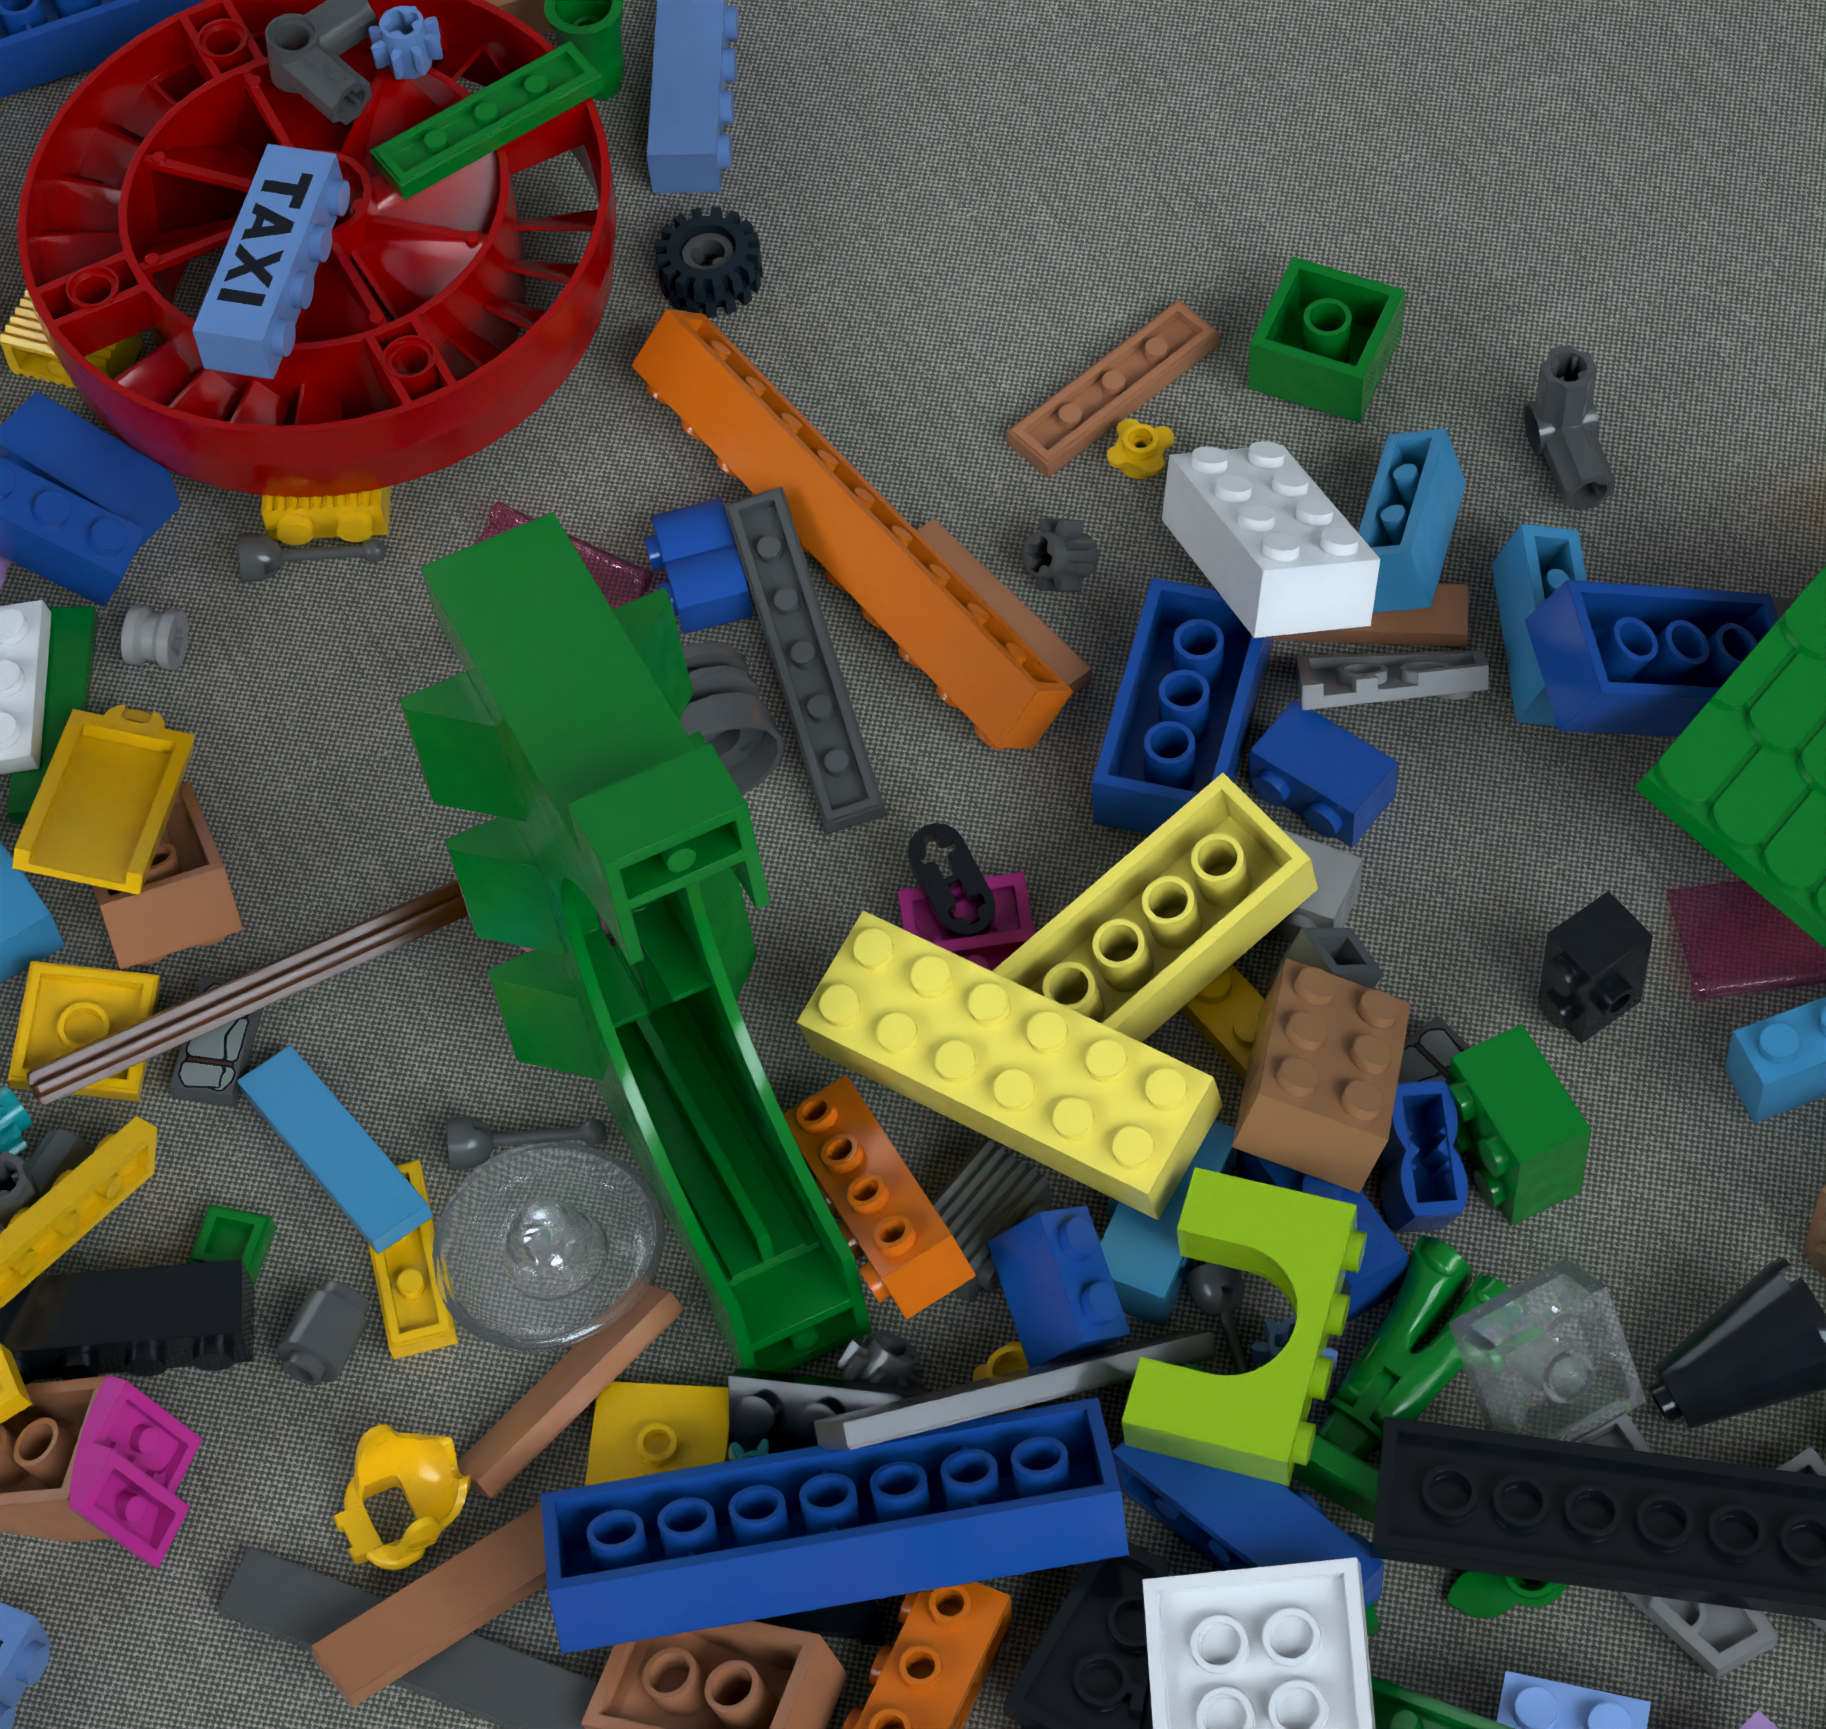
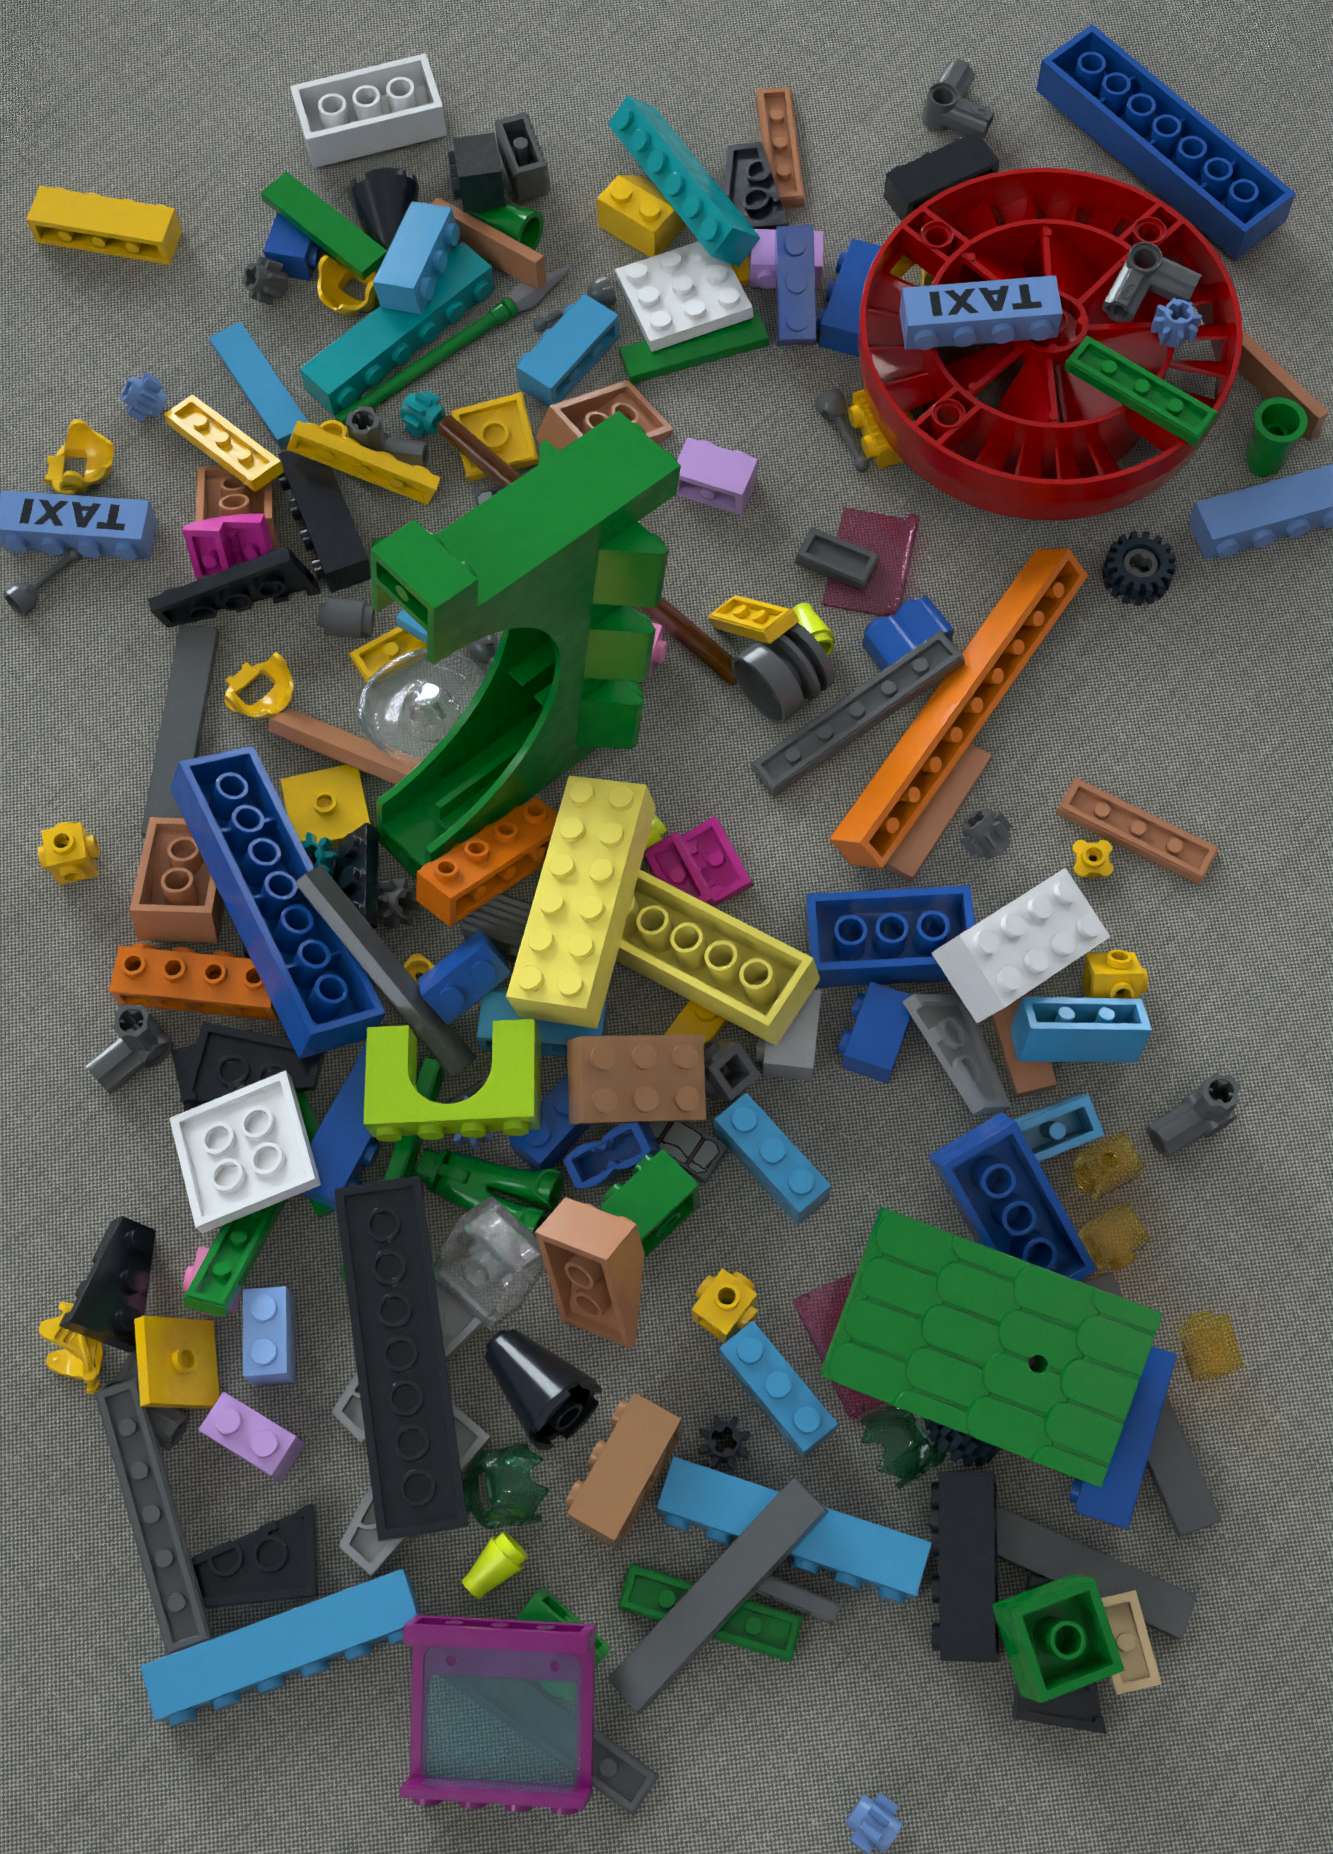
camera: 70 degrees right, 10 degrees up
(105, 799) = (639, 383): yellow piece -> none
(154, 636) = (756, 374): light grey wheel -> none
(199, 1492) = (235, 588): none -> black wing
(309, 739) = (716, 475): none -> lavender brick
(435, 1610) = (194, 722): nougat tile -> none
(965, 876) = (721, 839): black beam -> none
(1326, 339) = (1212, 943): green brick -> none
(1343, 462) = (1113, 975): none -> yellow brick
(1473, 956) = (772, 1158): none -> dark azure brick
(1594, 967) = (775, 1225): black brick -> none
(1612, 1204) = (594, 1269): none -> nougat slope
(1613, 546) = (1107, 1166): none -> clear yellow brick
(1690, 1074) = (724, 1319): none -> yellow brick
(1714, 563) = (1114, 1238): none -> clear yellow brick

